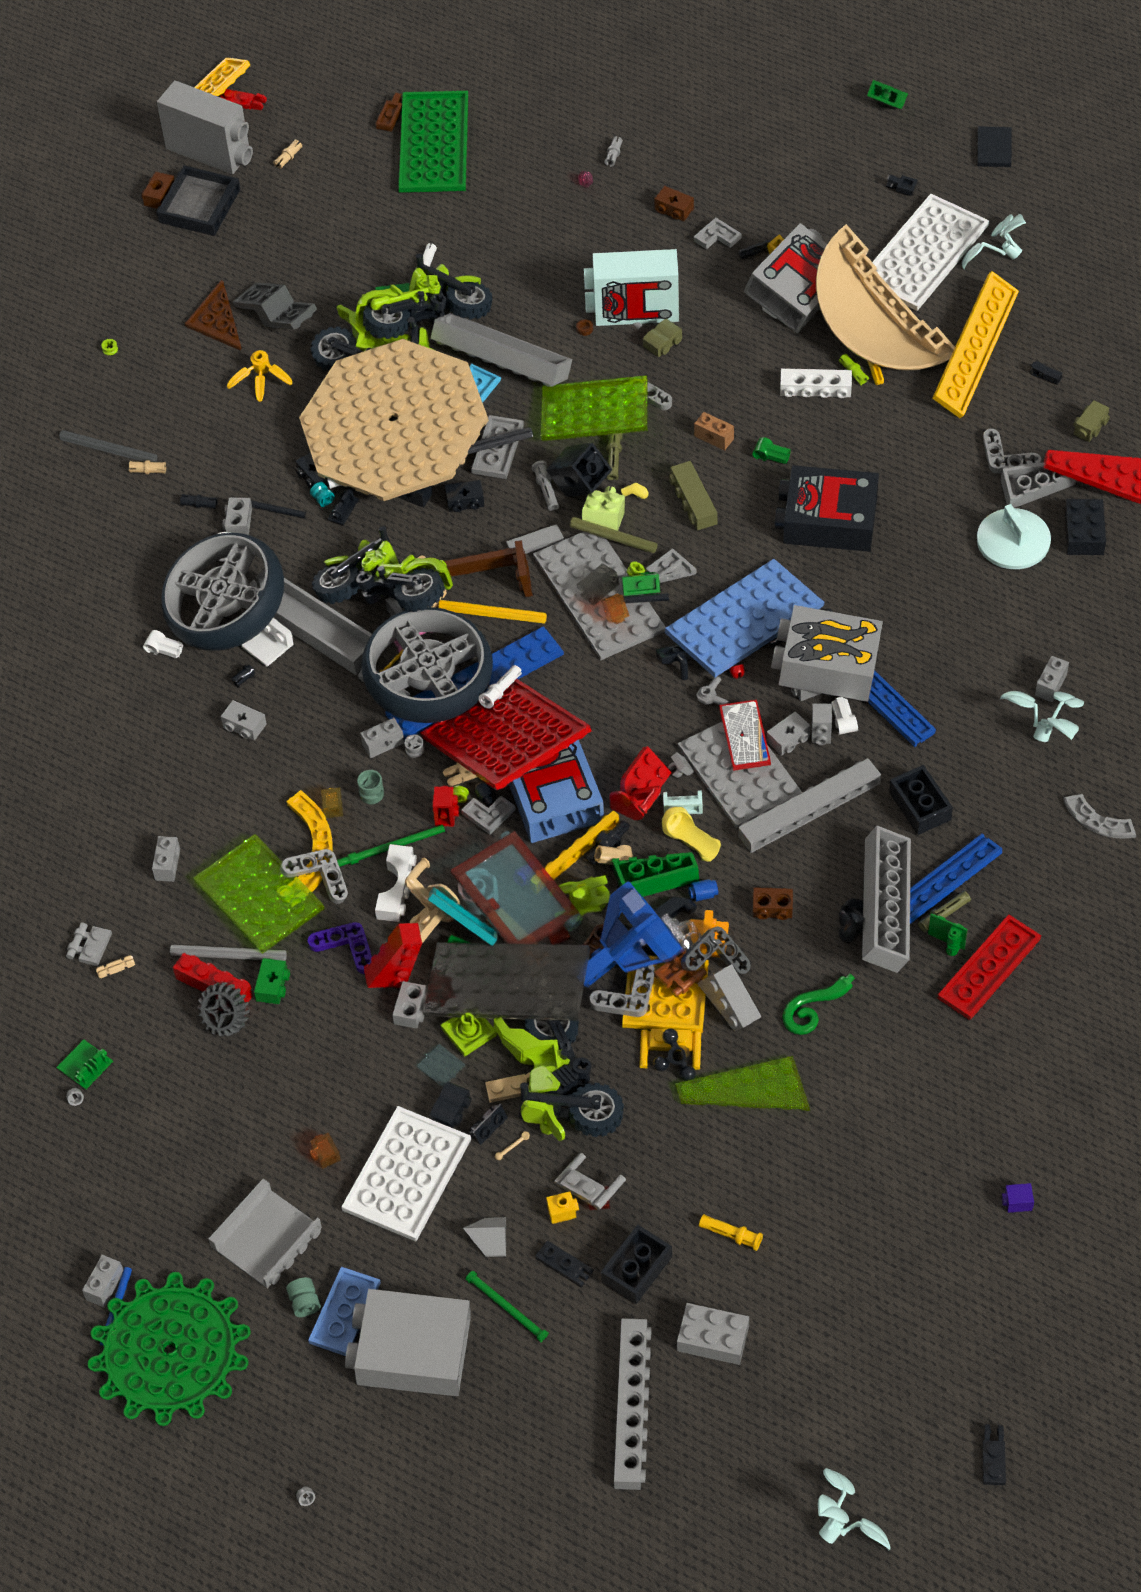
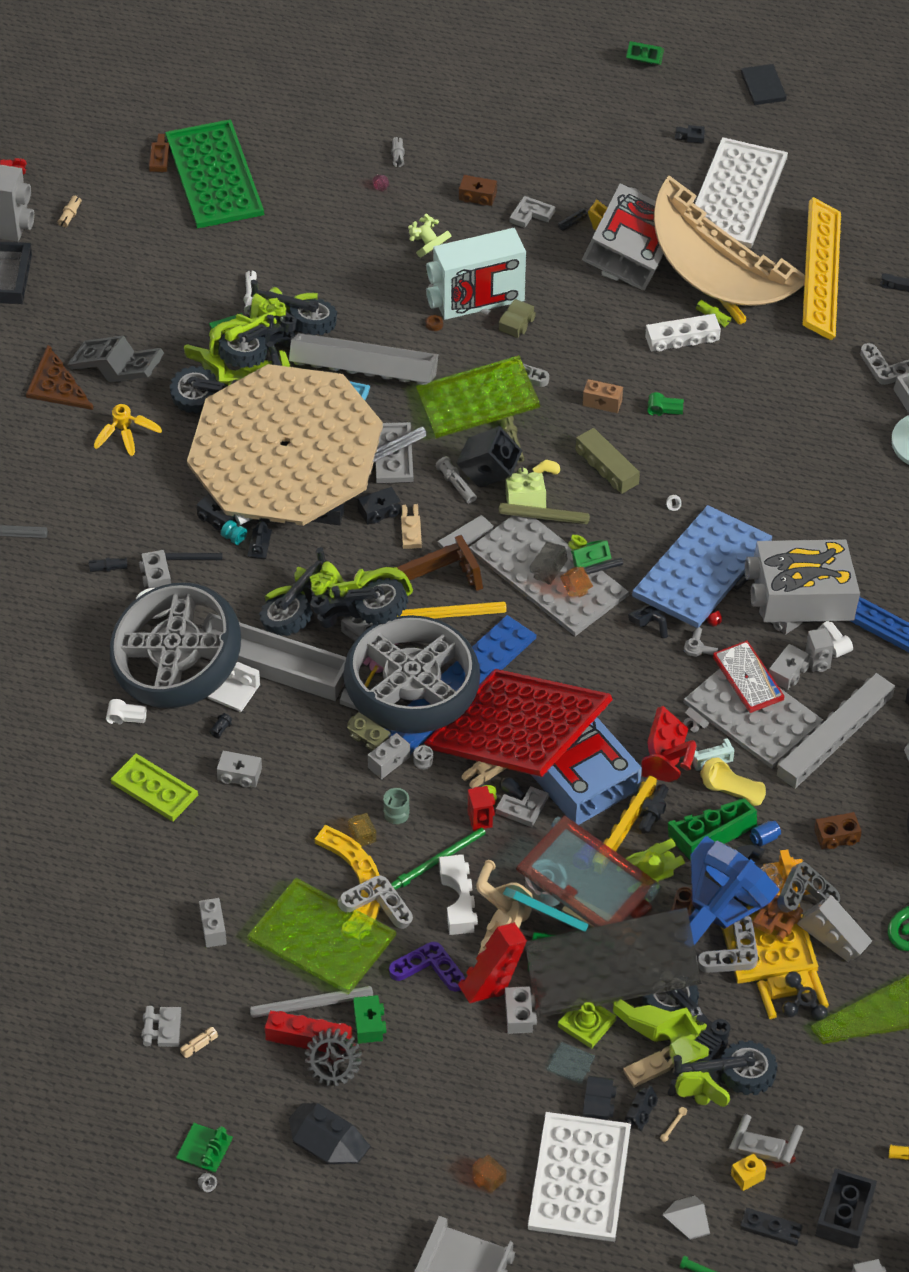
camera: 20 degrees left, 5 degrees down
(147, 467) = (41, 541): tan pin -> none
(162, 720) = (154, 787): none -> lime plate
(194, 1080) = (327, 1135): none -> black wedge
(370, 709) = (367, 731): none -> olive brick
(487, 523) = (411, 528): none -> tan hinge
(496, 690) = (489, 684): white pin -> none
(606, 854) = (660, 820): tan piece -> none
(607, 238) = (427, 234): none -> yellowish green piece
(671, 567) = (612, 531): light grey wing -> none
(738, 549) = (669, 502): none -> white hinge
(828, 508) = (745, 446): black brick -> none
(1009, 246) = (817, 172): light aqua plant -> none

